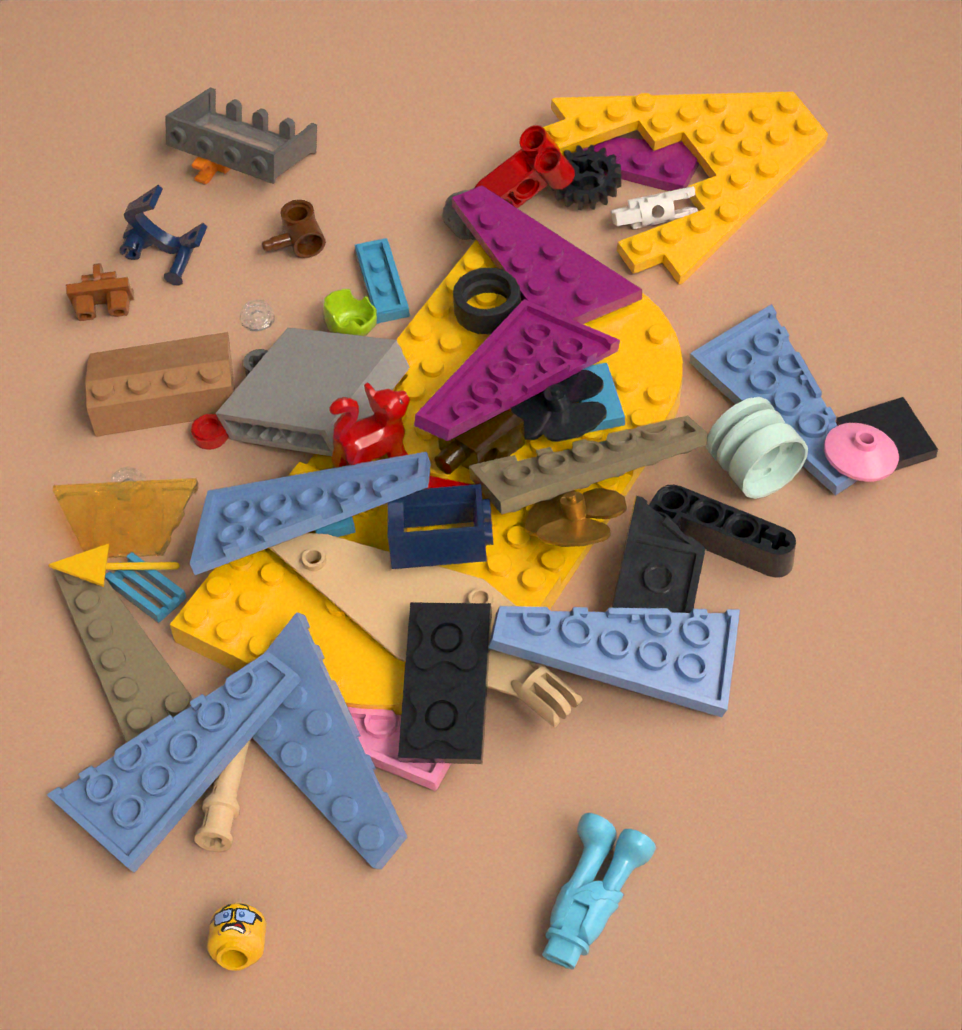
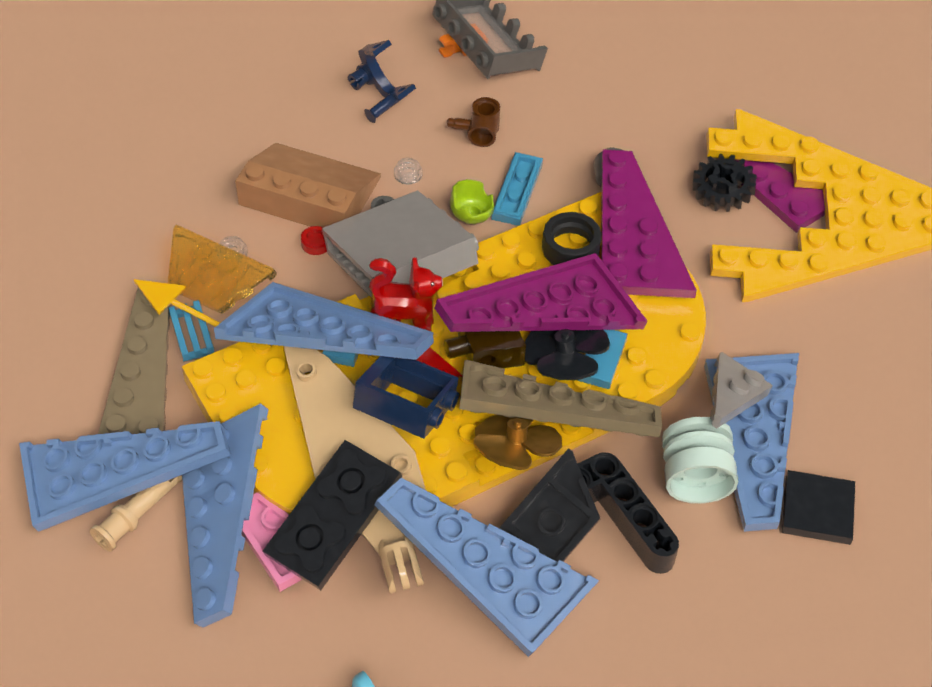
camera: 25 degrees right, 0 degrees up
(100, 289) = (313, 98): dark orange hips -> none
(236, 936) = (66, 617): yellow head -> none
(530, 169) = (678, 156): red piece -> none
(639, 210) = (746, 232): white hinge -> none
(742, 362) = (735, 389): none -> light grey wing
(861, 452) = (778, 515): bright pink dish -> none

